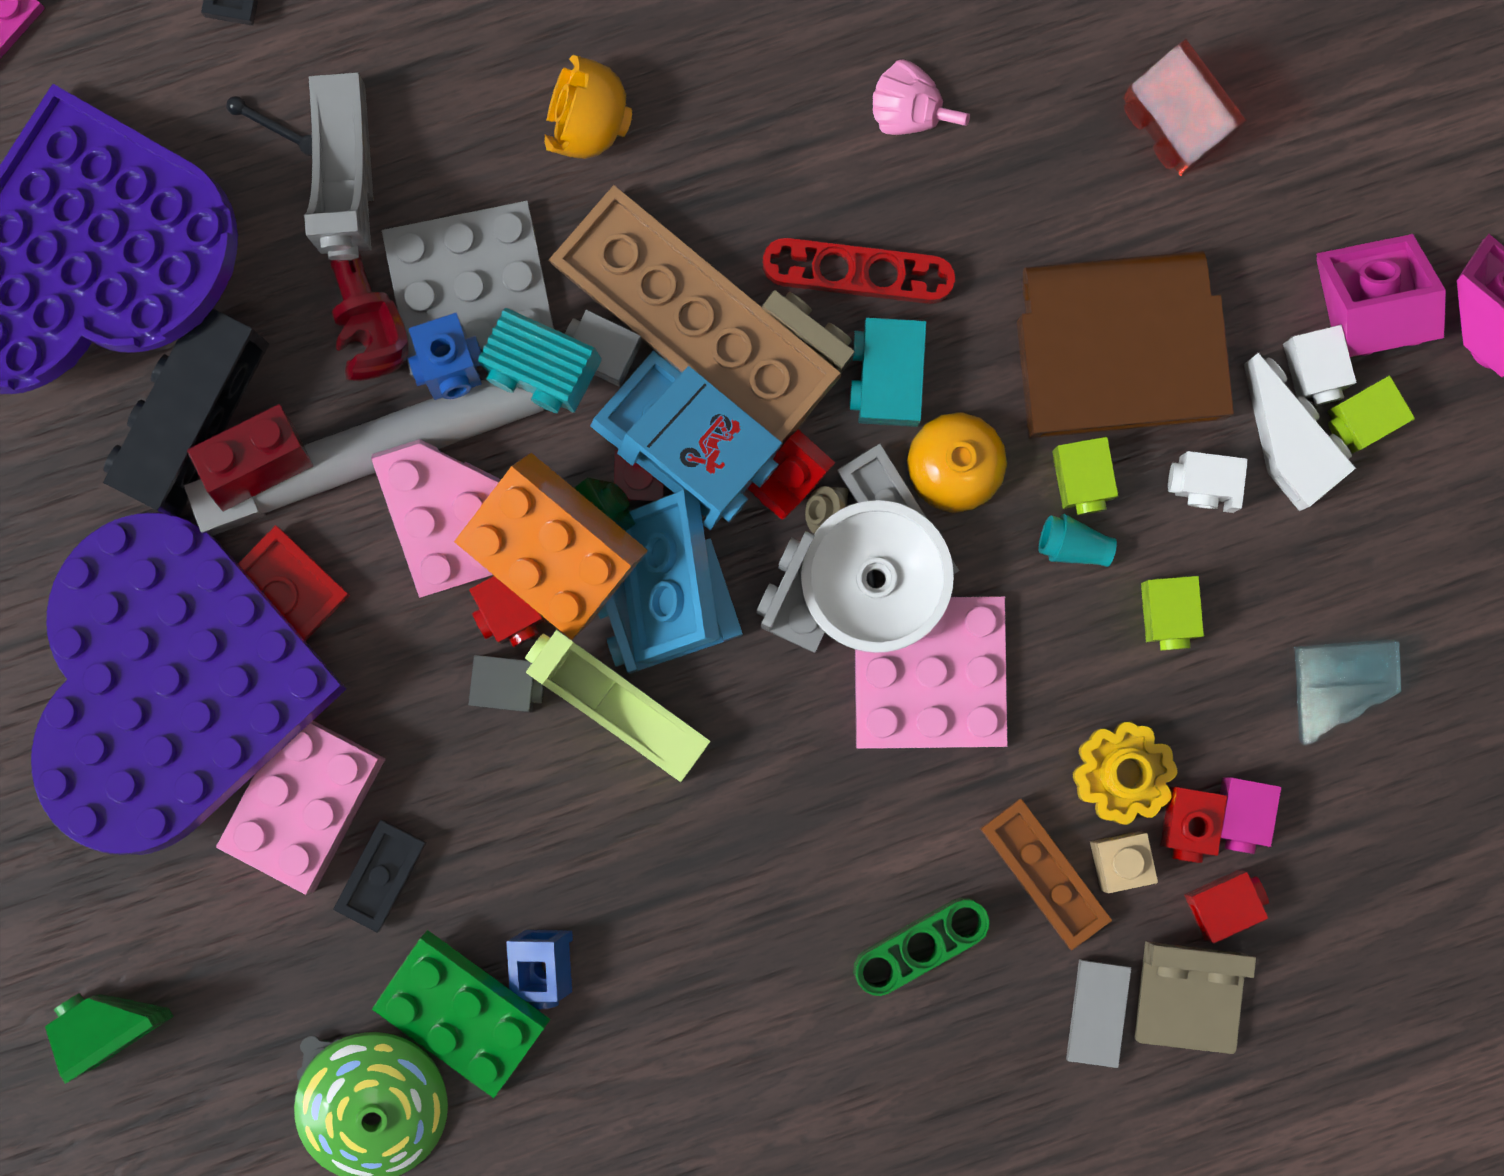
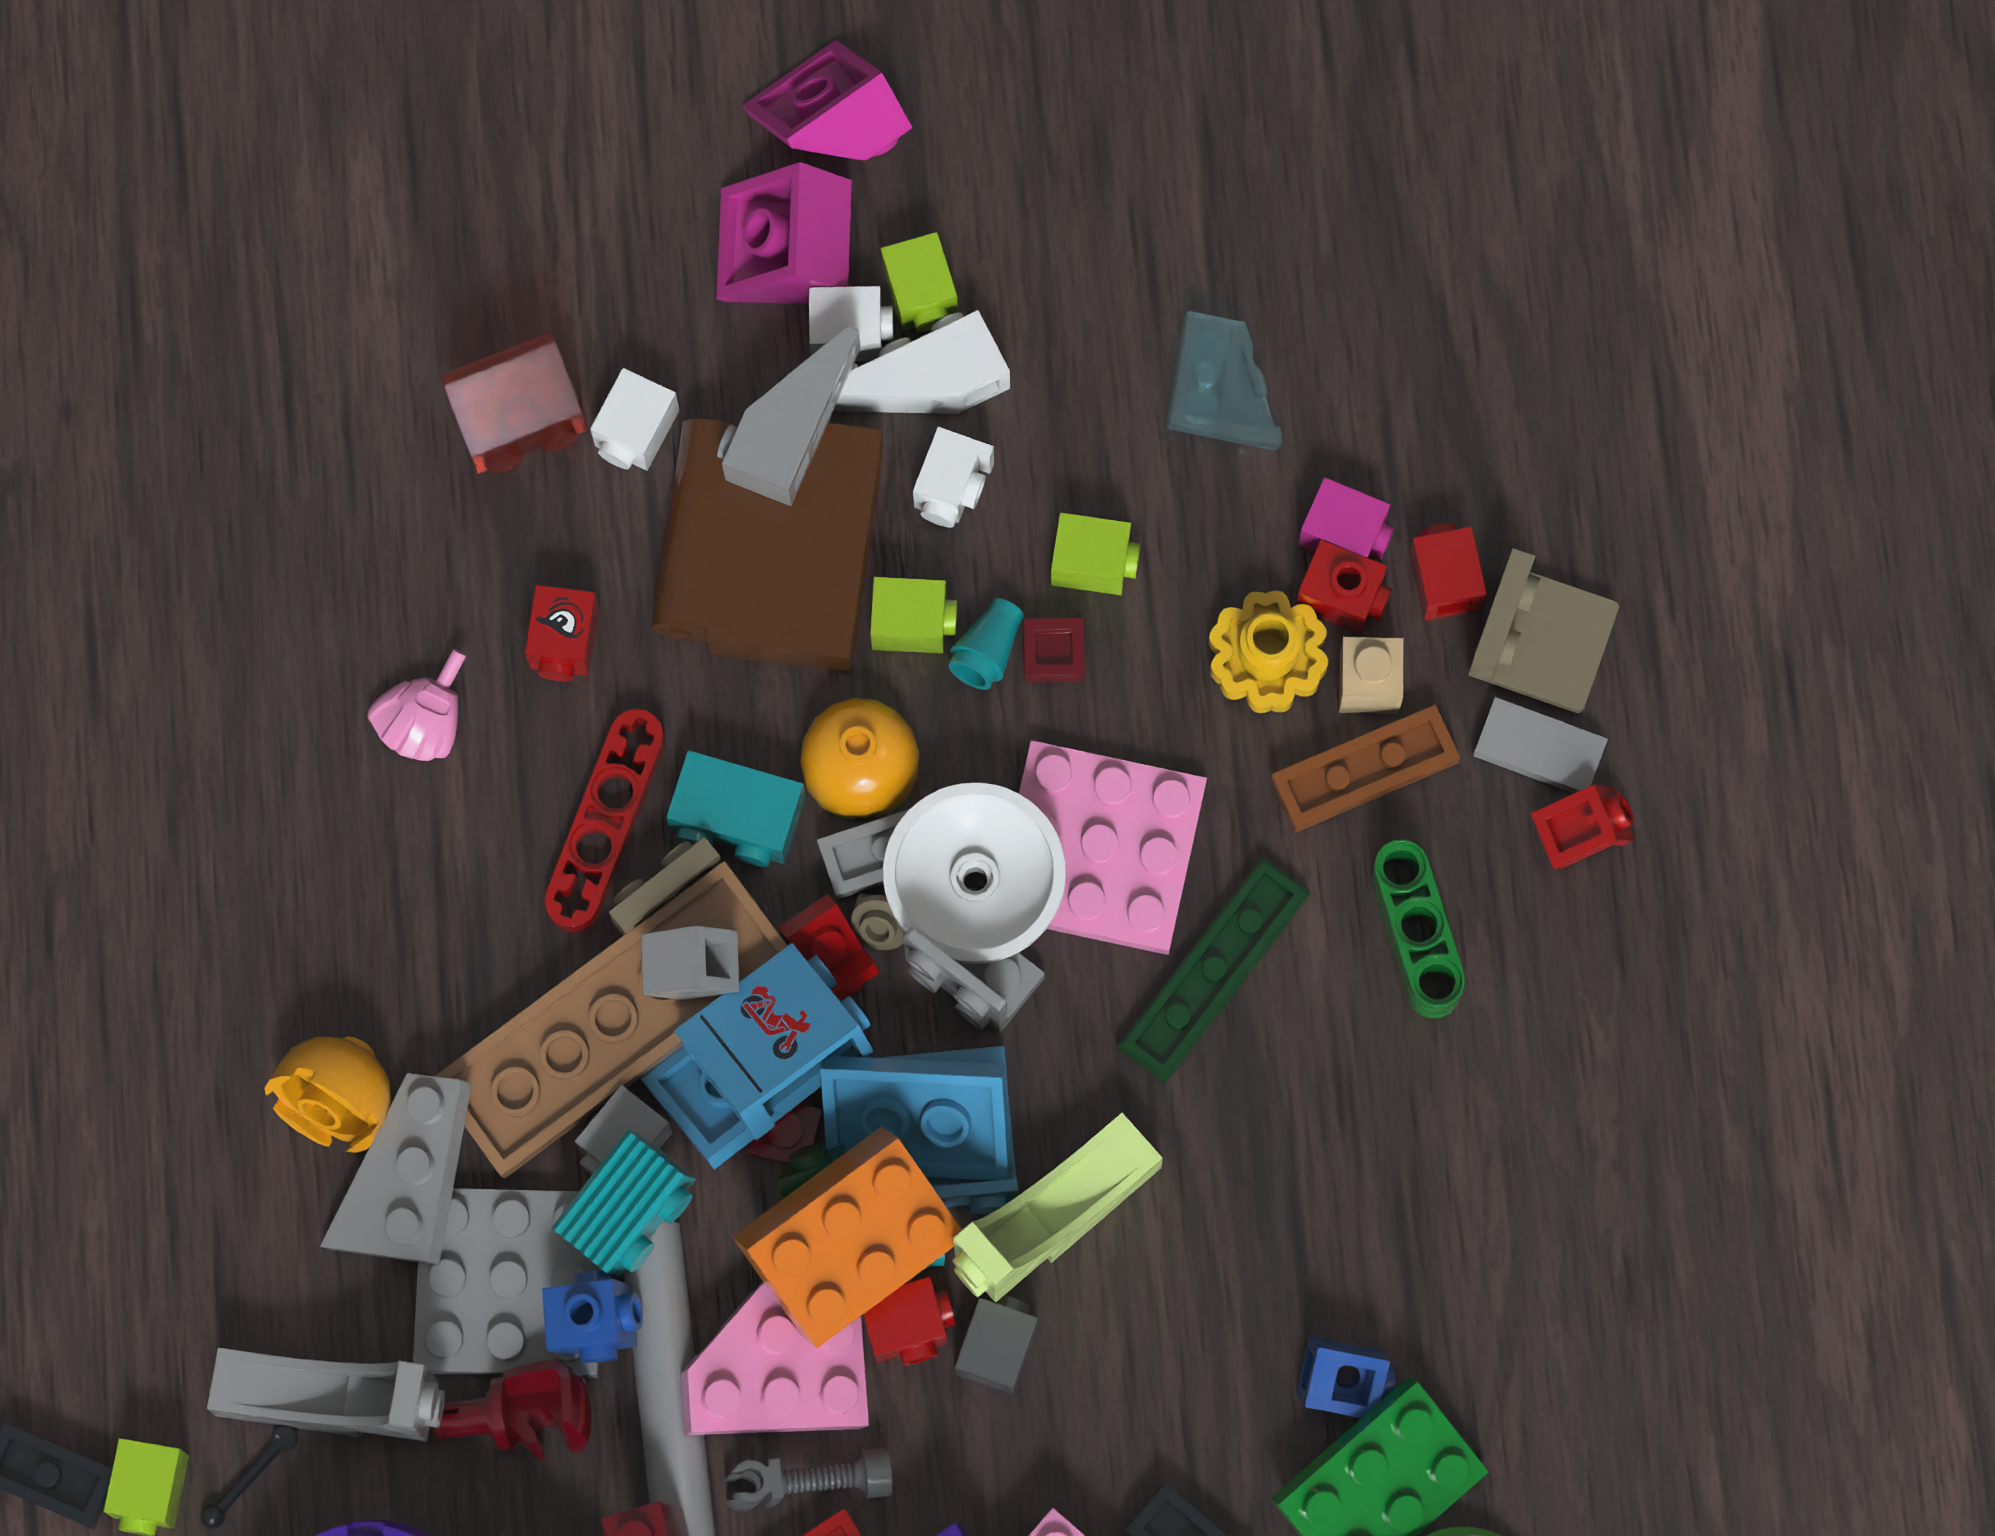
camera: 70 degrees left, 10 degrees down
(243, 47) = (145, 1486): none -> lime brick
(380, 606) = (869, 1473): none -> dark grey bar
(531, 185) = (407, 1177): none -> light grey wing
(744, 364) = (690, 962): none -> light grey brick
(850, 788) = (1213, 971): none -> dark green tile
(1003, 197) = (562, 632): none -> red brick
(1040, 1064) = (1584, 824): none -> red bracket
(1084, 597) = (1054, 650): none -> dark red plate
(1194, 211) = (634, 421): none -> white brick
(1214, 333) = (786, 424): none -> light grey slope

